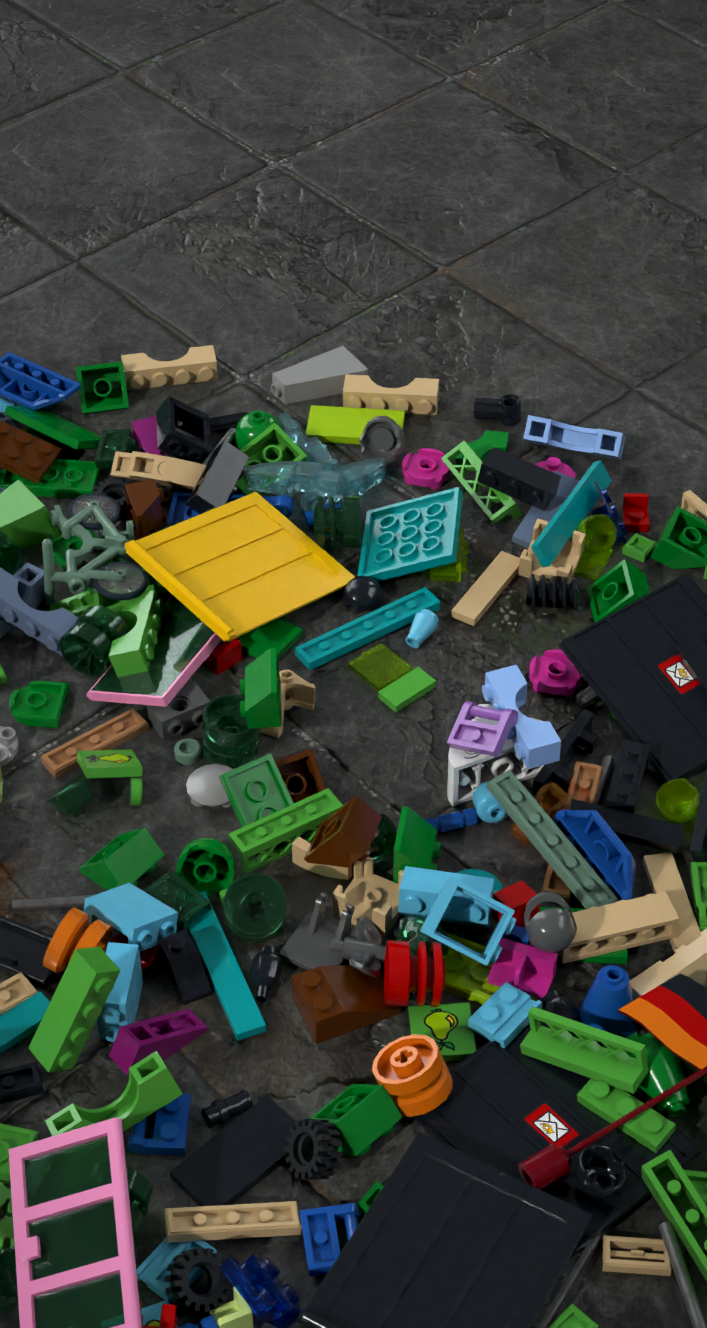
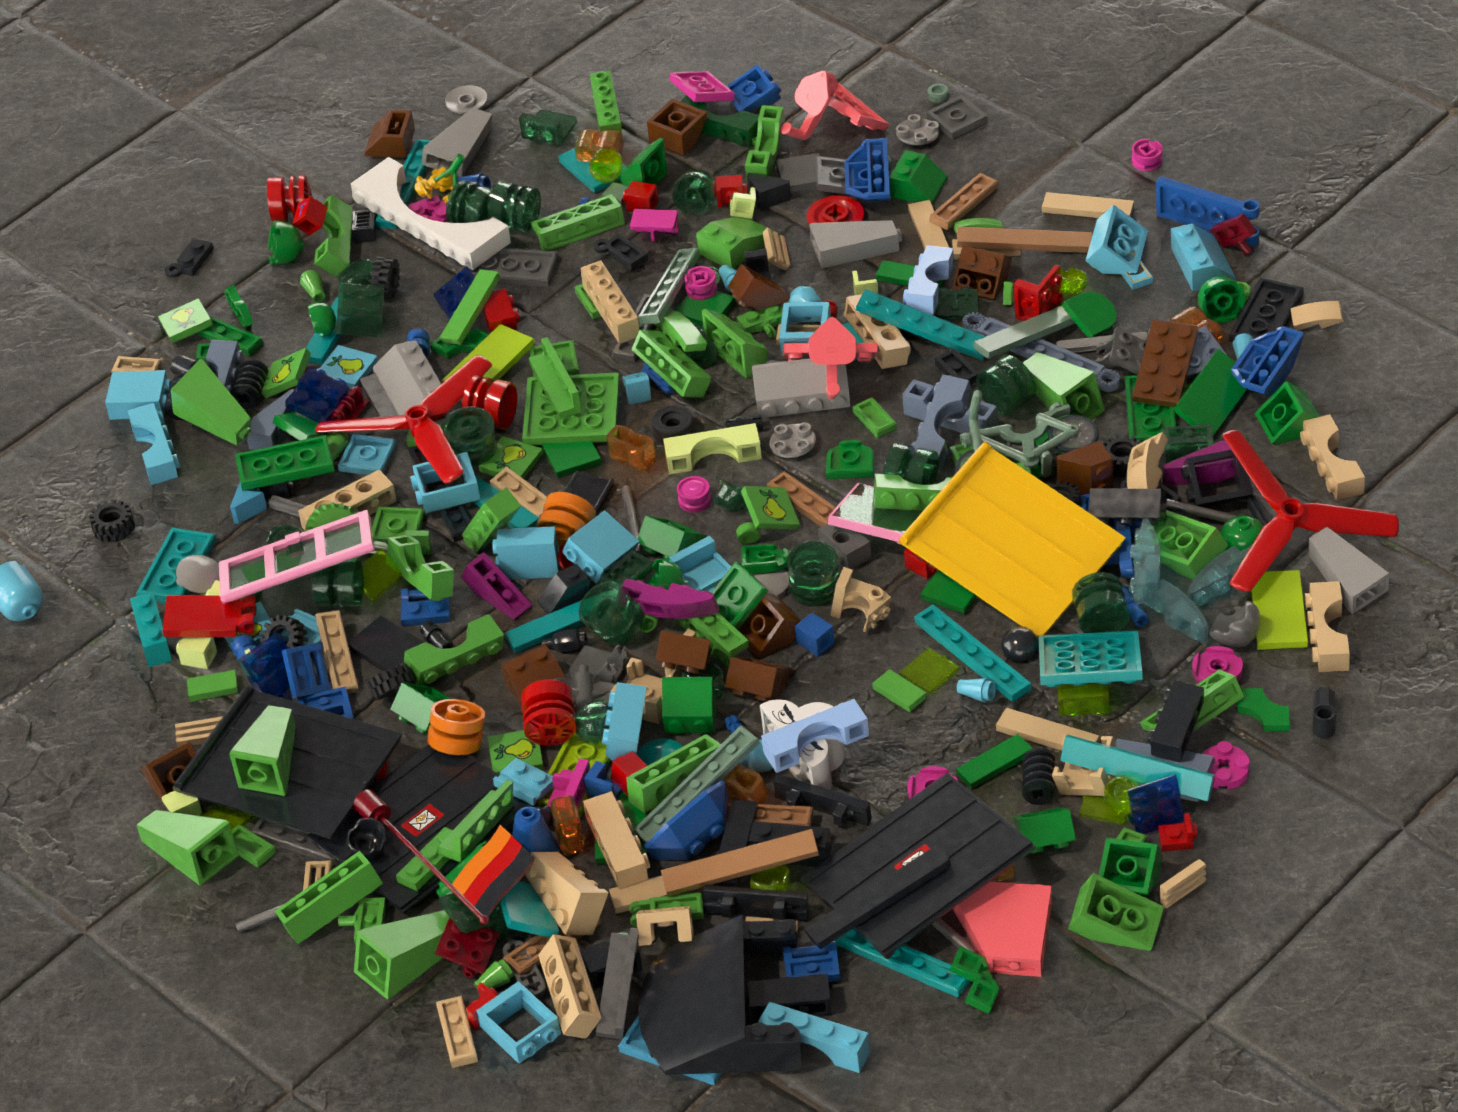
camera: 90 degrees right, 0 degrees up
(45, 1111) = (424, 539): none -> bright green tile
(51, 837) = (694, 494): none -> dark pink wheel
(181, 781) = (764, 558): none -> green tile
(182, 828) = (701, 565): none -> medium azure panel
(253, 1055) = (430, 662): none -> bright green arch
(257, 392) = (1293, 514): none -> red piece
(260, 842) = (674, 603): none -> magenta slope
(262, 692) = (819, 567): green slope -> none
(276, 1246) = (301, 672): none -> blue plate
(319, 739) = (814, 634): none -> blue panel
(377, 785) = (756, 677): none -> reddish brown slope
(447, 1272) = (265, 752): none -> bright green slope
(480, 736) = (789, 706): medium lavender plate -> none
(504, 925) = (576, 709): medium azure window -> none
(518, 861) = (655, 782): none -> bright green brick
(520, 627) = (993, 761): none -> green tile
(551, 928) = (585, 781): dark grey helmet -> none
(574, 438) = (1286, 750): light blue arch -> none
(584, 964) = (567, 825): none -> clear orange brick
(668, 815) = (739, 862): none -> medium nougat tile

